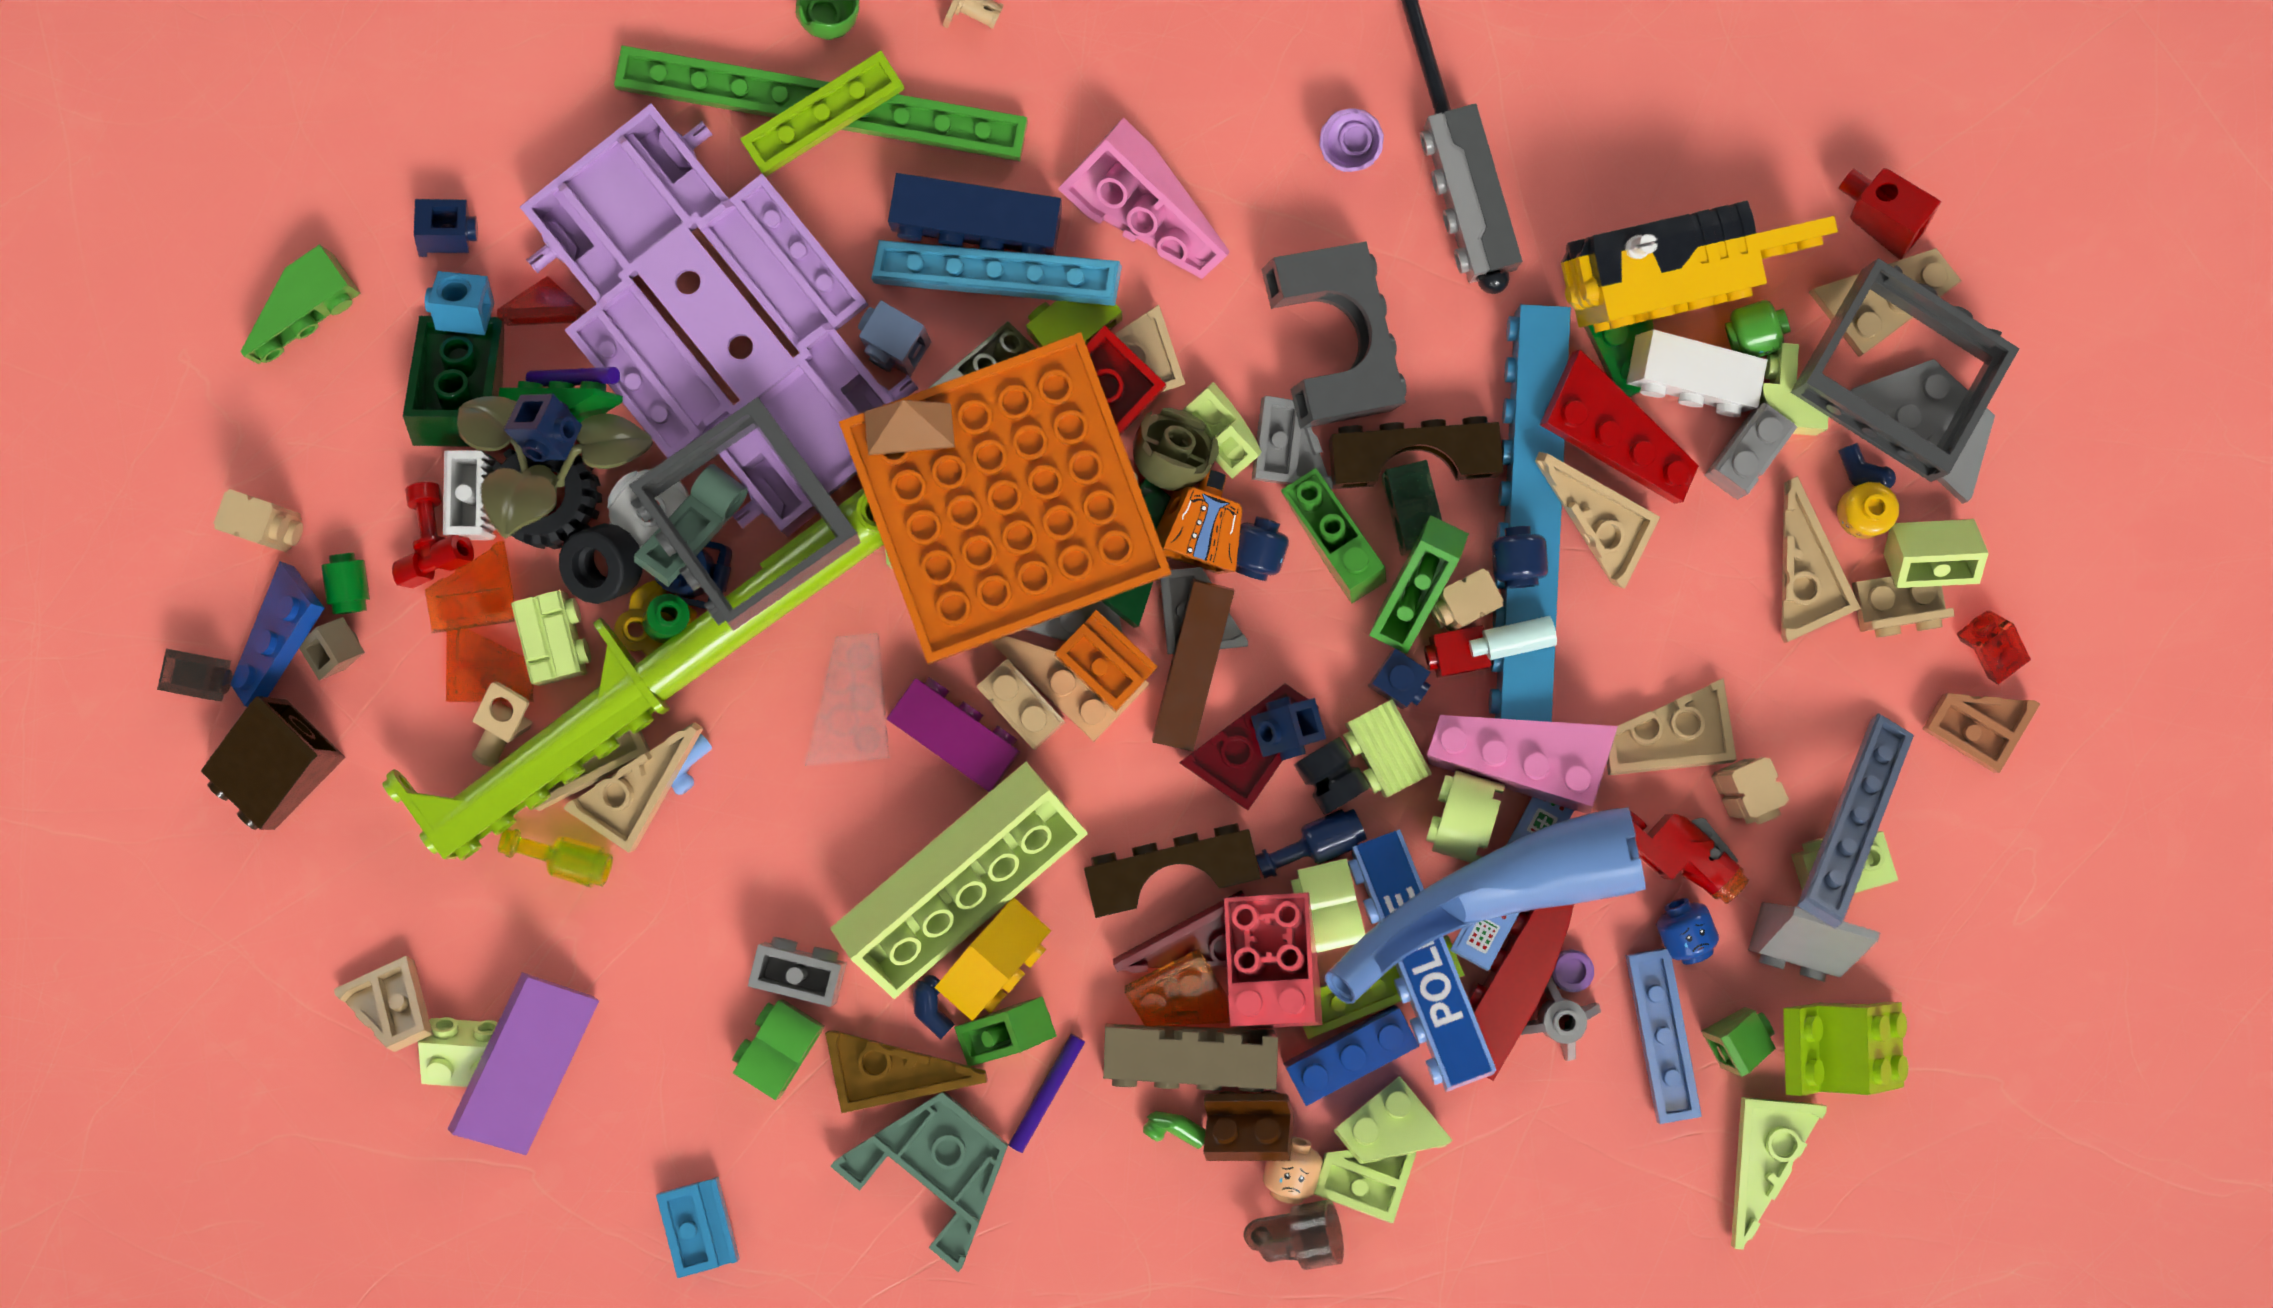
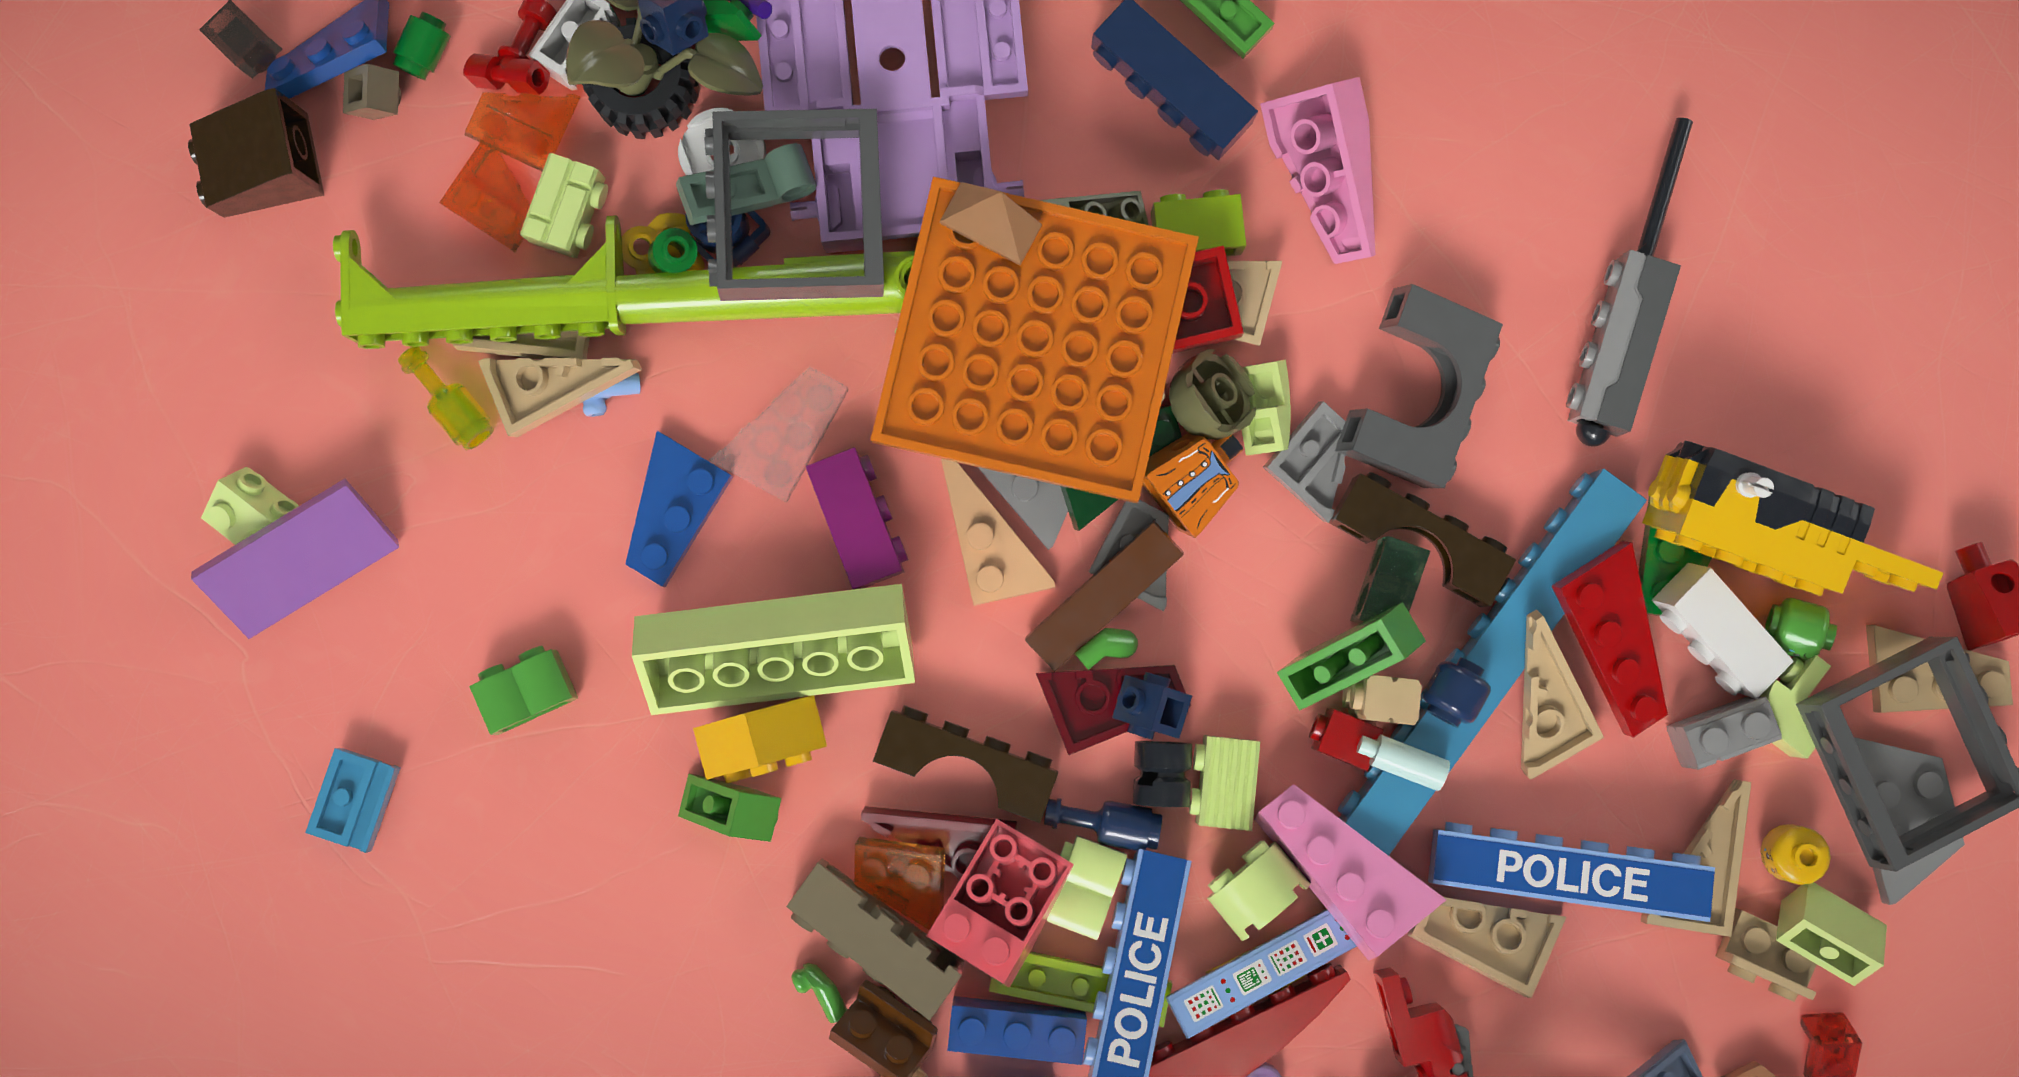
camera: 35 degrees right, 0 degrees up
(390, 1003) = (218, 431): tan wing -> none
(499, 722) = (471, 250): tan bracket -> none
(580, 570) = (628, 164): black tyre -> none
(798, 973) = (582, 637): light grey brick -> none
(800, 822) = (672, 508): none -> blue wing
(881, 1074) = (599, 773): pearl gold wing -> none
(893, 338) = (1030, 138): sand blue brick -> none
(926, 1006) = (675, 741): dark blue arm -> none
(944, 1152) = (608, 879): sand green wing -> none
(997, 272) = (1159, 141): medium azure tile -> none
(1020, 704) = (931, 531): tan brick -> none
(1046, 1093) = (730, 885): dark purple bar -> none
(1105, 661) = (1030, 542): orange plate -> none
(1221, 700) = (1108, 643): none -> bright green arm
(1261, 549) = (1231, 533): dark blue head -> none
(1335, 536) = (1304, 565): bright green slope -> none
(1351, 140) = (1547, 226): lavender hair -> none
(1401, 680) = (1278, 729): dark blue brick -> none
(1551, 867) = (1297, 983): medium blue brick -> none
(1703, 641) = (1572, 874): none -> blue brick
(1751, 790) = (1527, 1034): tan brick -> none
(1862, 472) = (1810, 816): dark blue arm -> none

